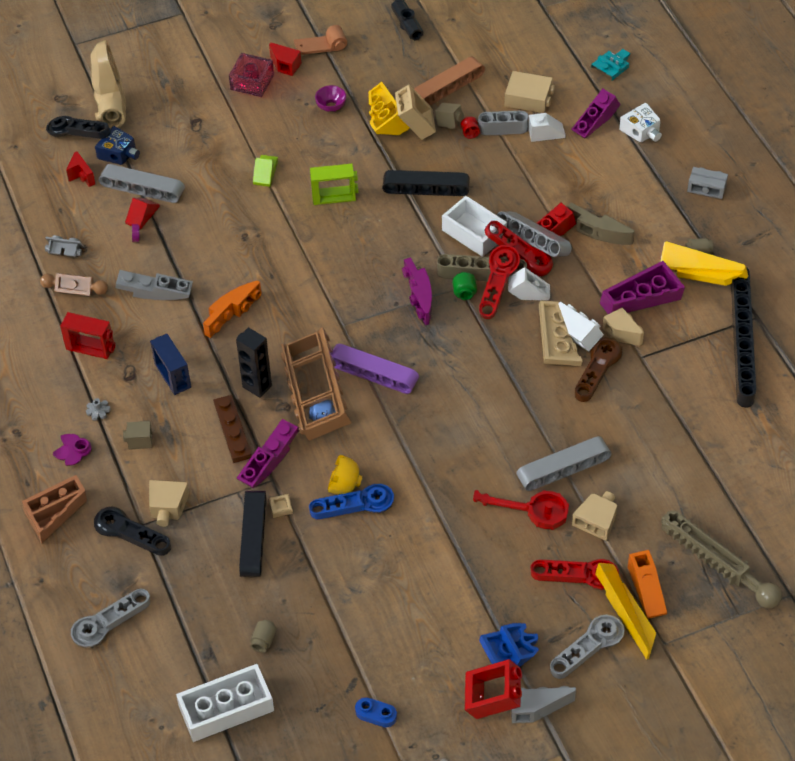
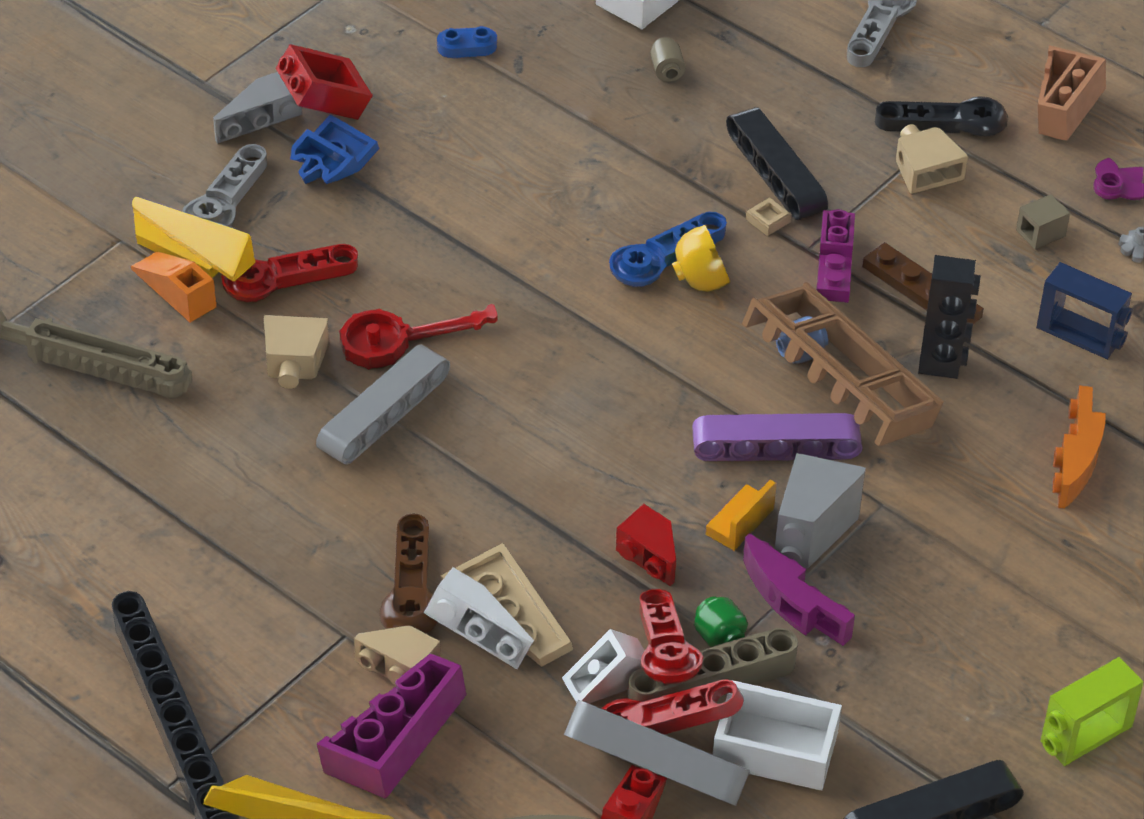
camera: 150 degrees right, 5 degrees down
(386, 312) = (817, 507): none -> light grey slope
(416, 336) = (742, 515): none -> light orange panel
(472, 338) = (649, 543): none -> red slope

